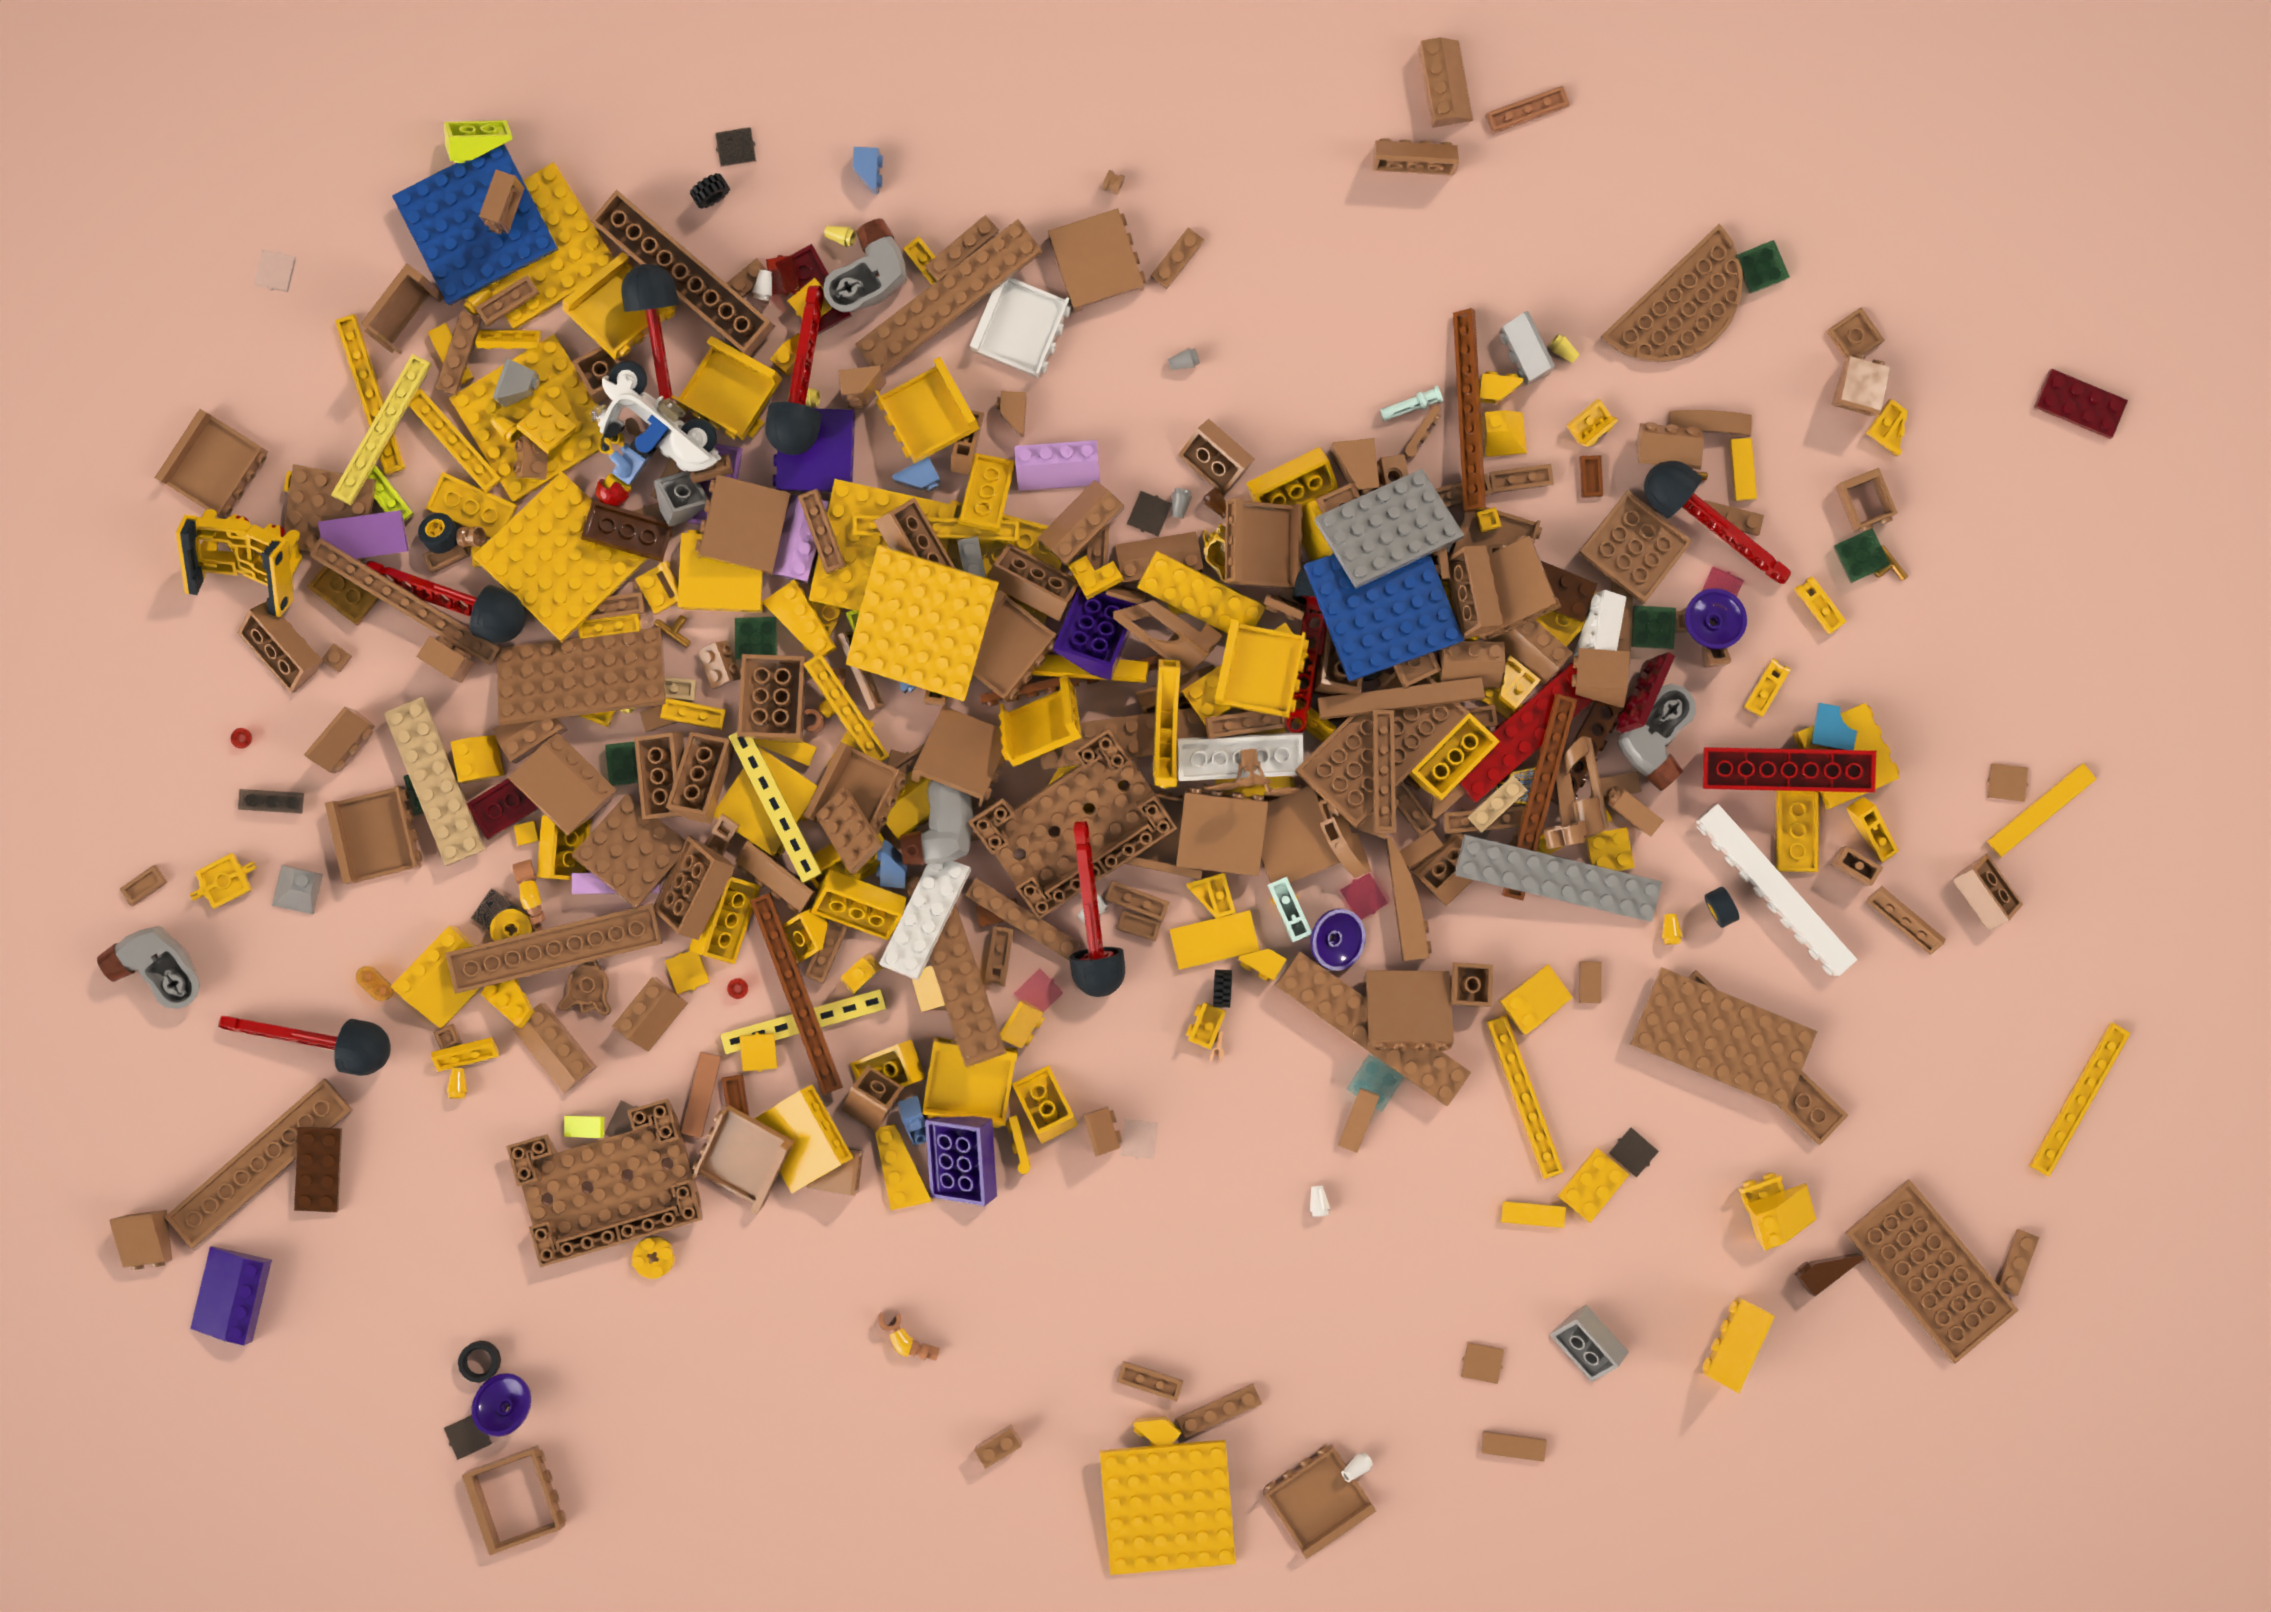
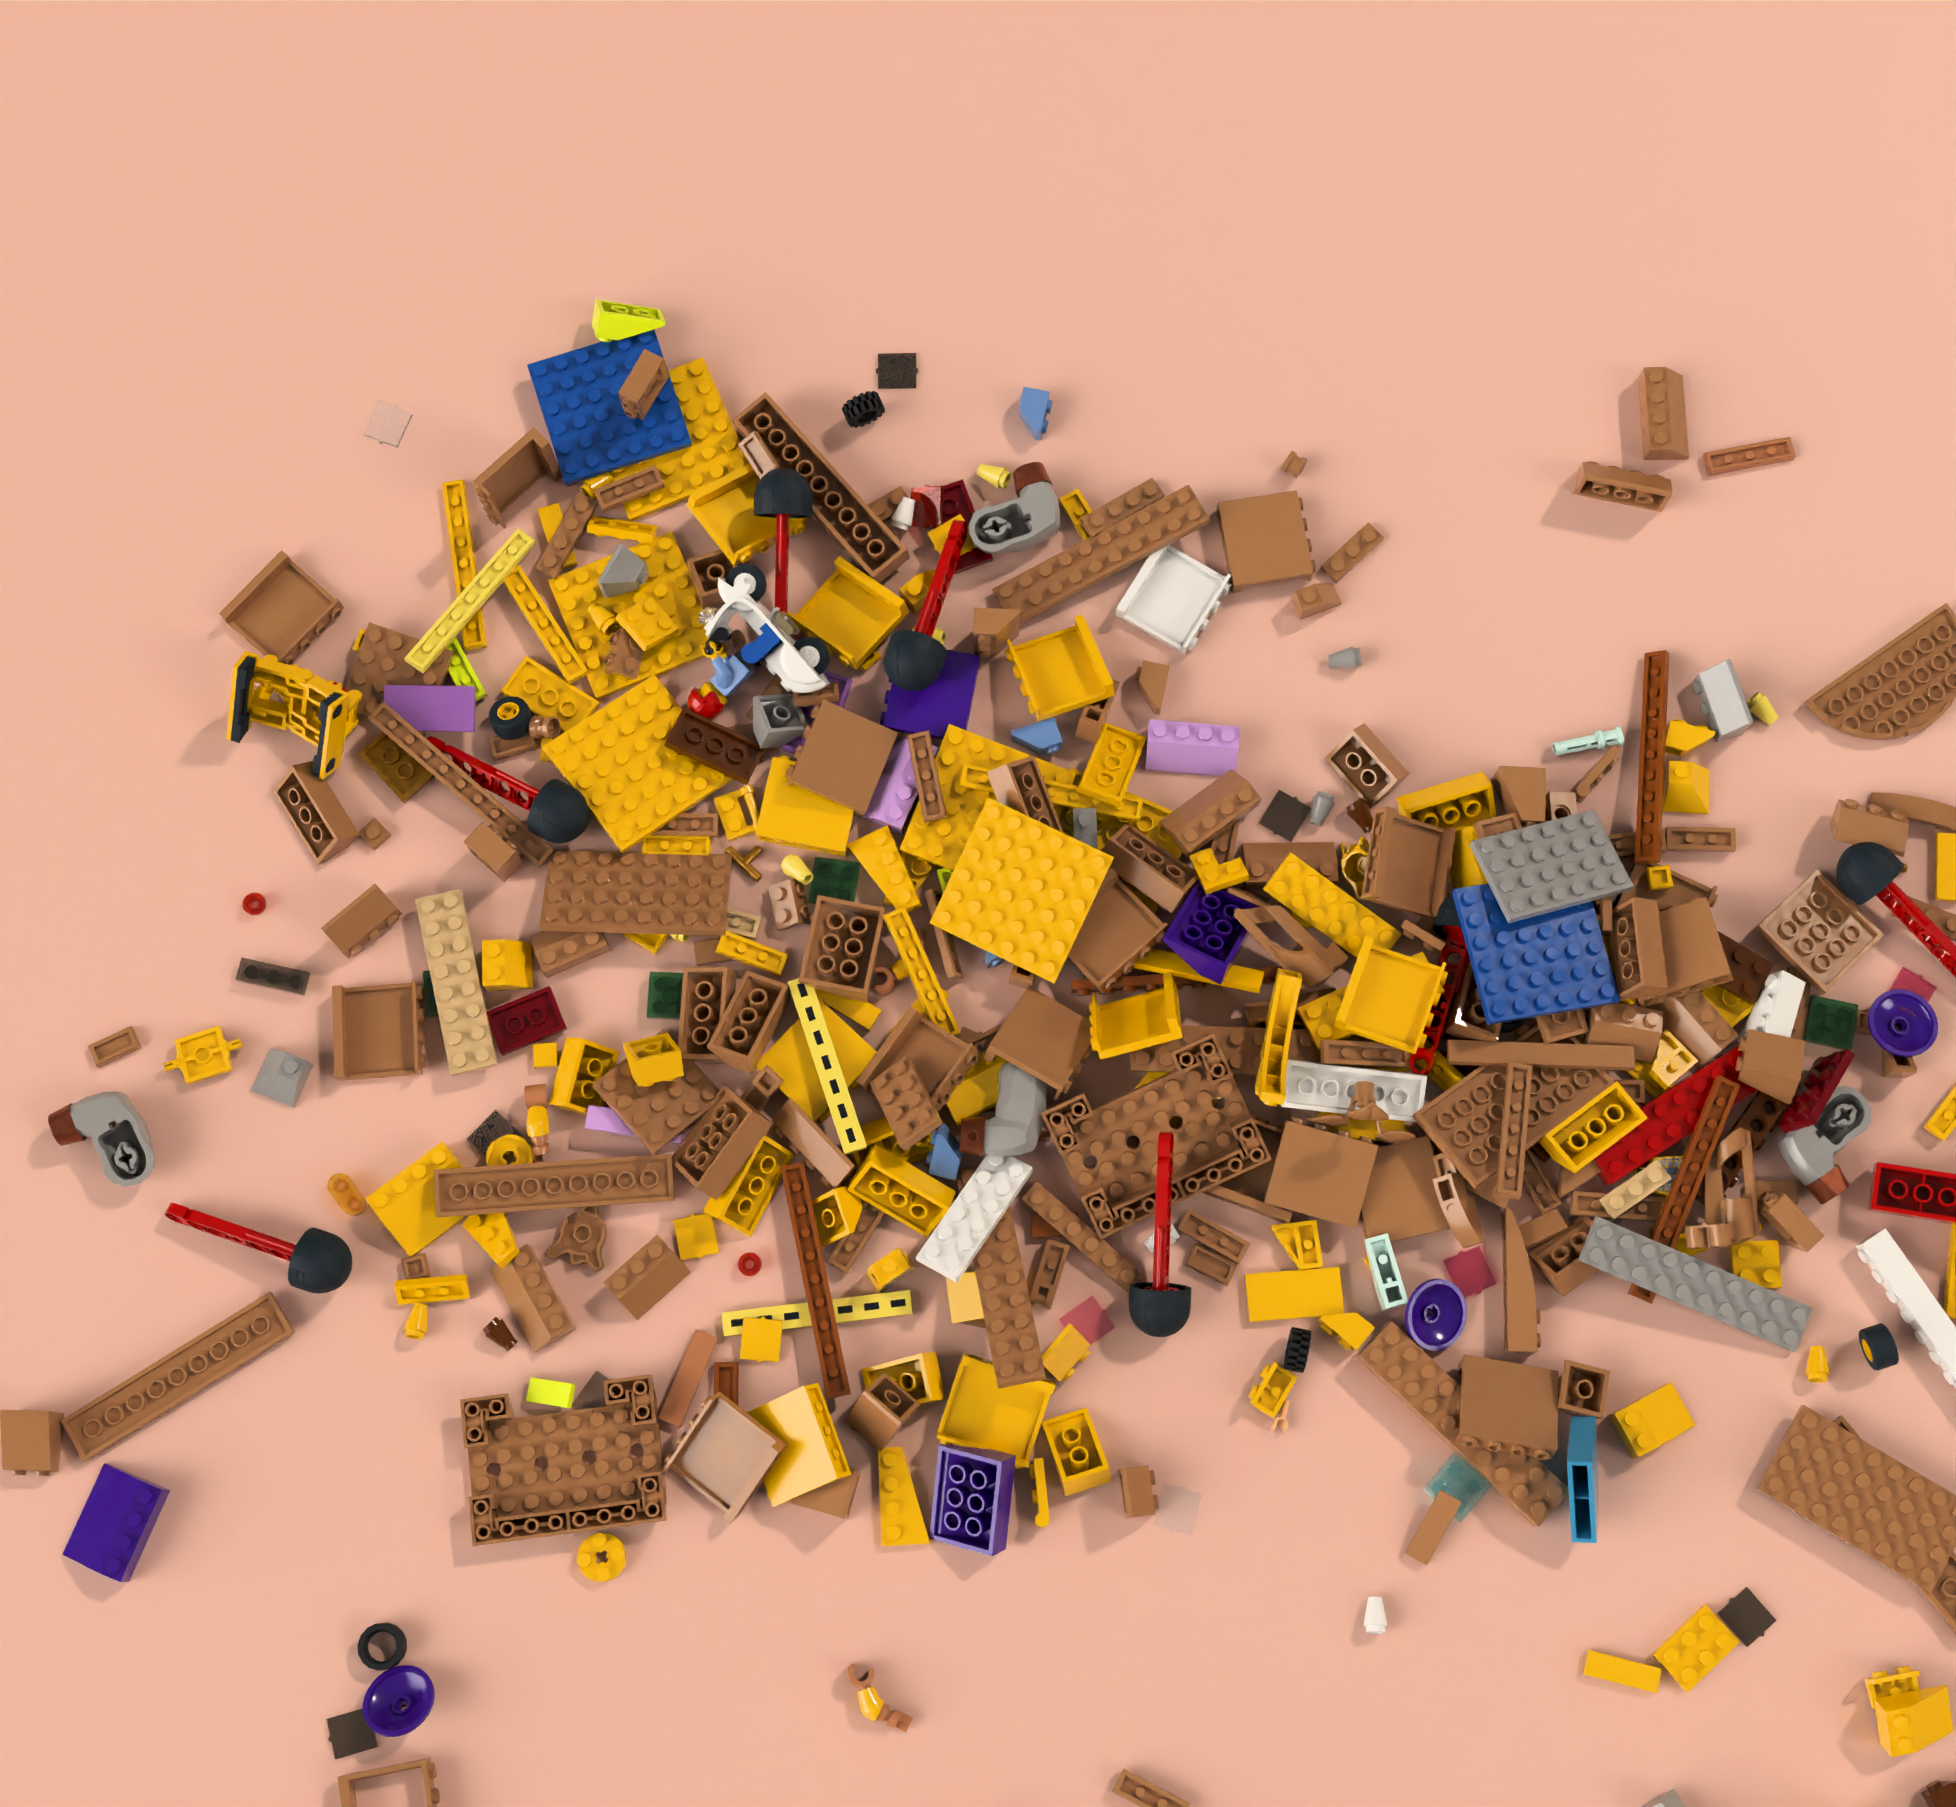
camera: 10 degrees right, 10 degrees down
(318, 1169) = (243, 1393): reddish brown plate -> none
(531, 1083) = (500, 1334): none -> reddish brown cone
(562, 784) = (597, 1005): medium nougat slope -> none
(620, 251) = (758, 454): none -> tile
(621, 824) = (654, 1059): none -> yellow slope
(718, 630) = (796, 868): none -> light yellow cone
(913, 1119) = (925, 1445): medium blue slope -> none
(1150, 308) = (1315, 599): none -> medium nougat slope
(1479, 1060) = (1583, 1479): none -> dark azure brick
(1524, 1097) = (1628, 1533): yellow tile -> none
(1590, 982) = (1717, 1410): medium nougat tile -> none
(1591, 423) = (1784, 792): yellow bracket -> none
(1591, 476) = (1777, 849): dark orange tile -> none

